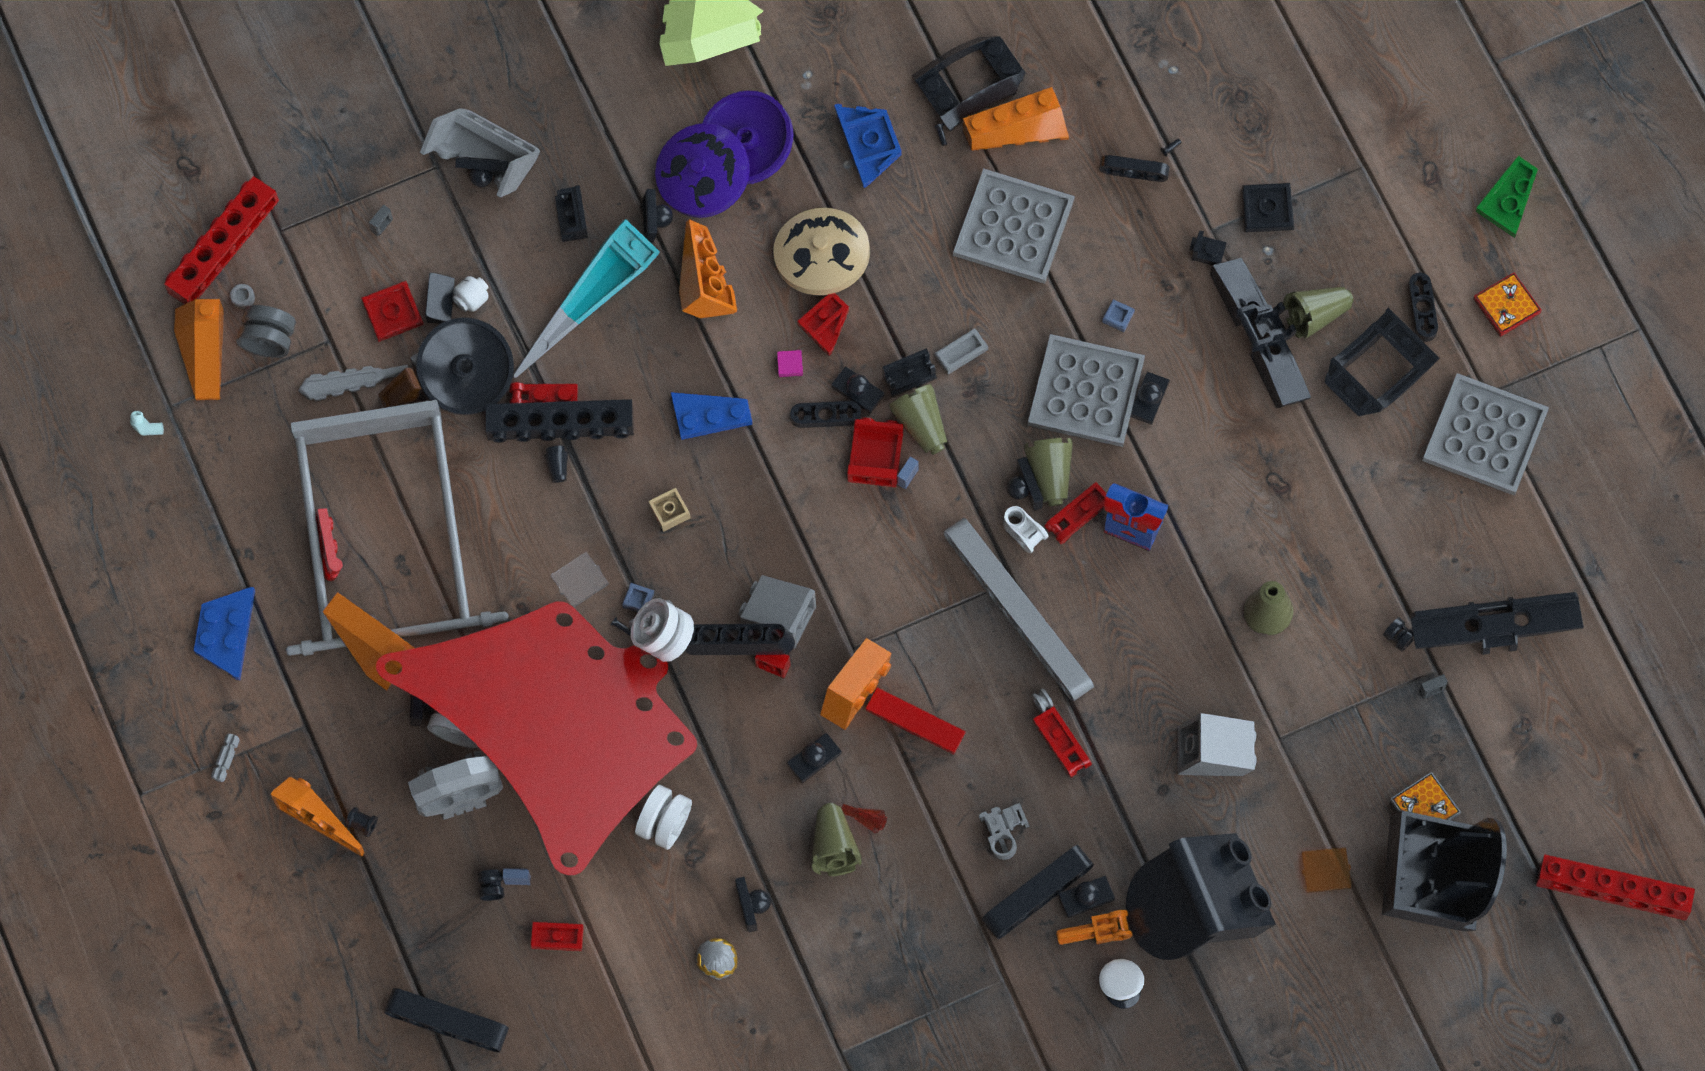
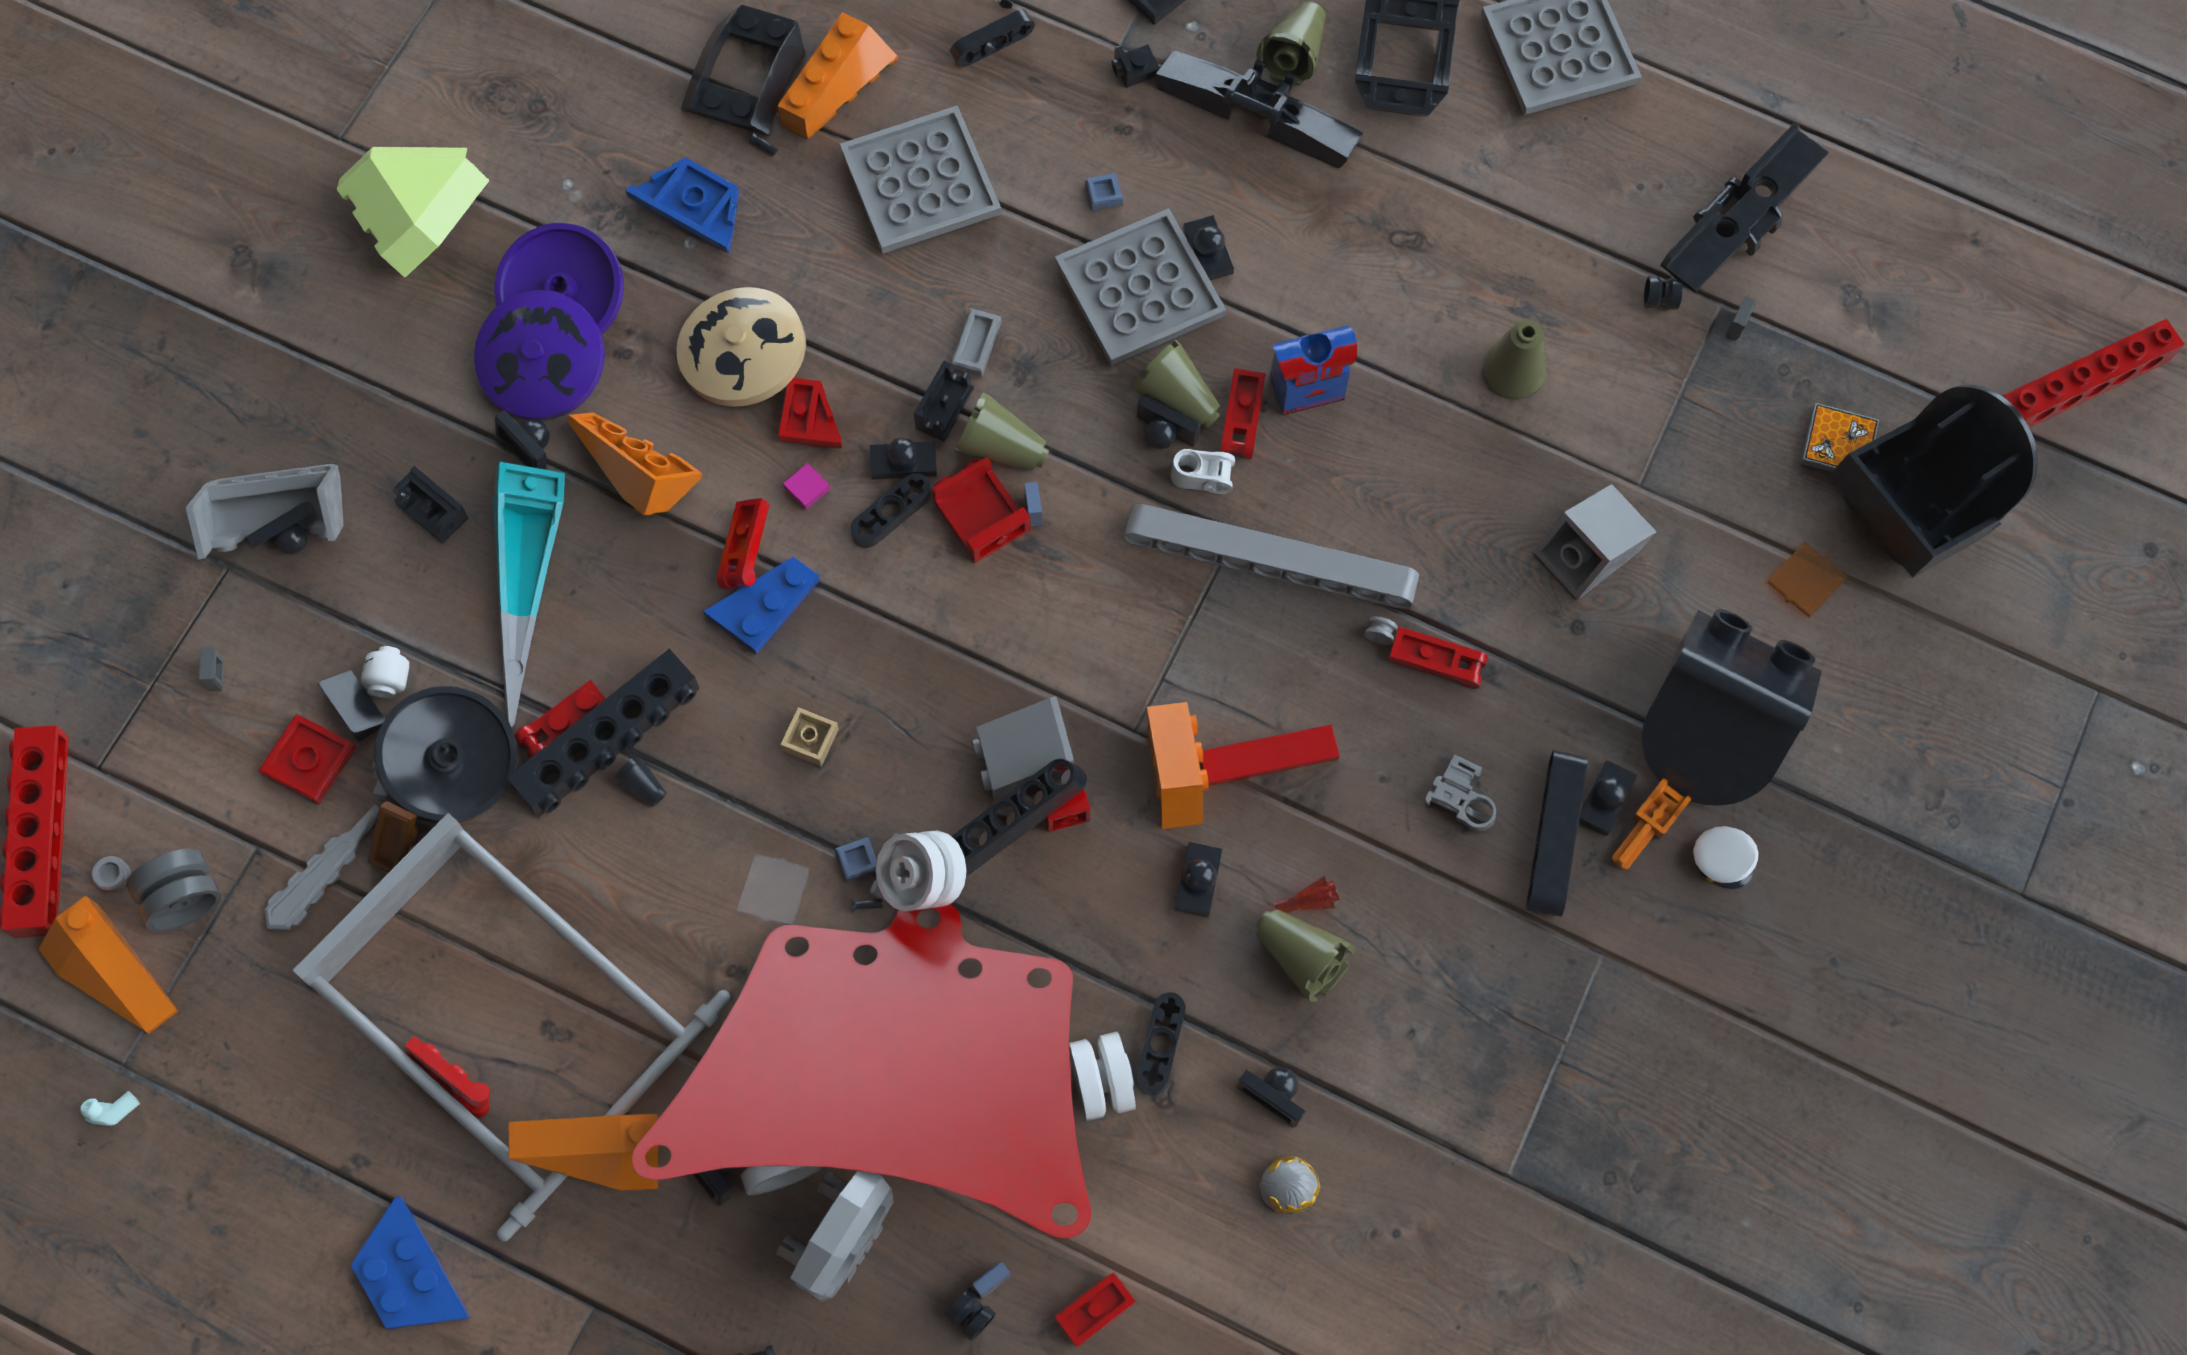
camera: 45 degrees left, 0 degrees up
(715, 818) = (1176, 1021): none -> black beam
(724, 370) = (742, 544): none -> red plate

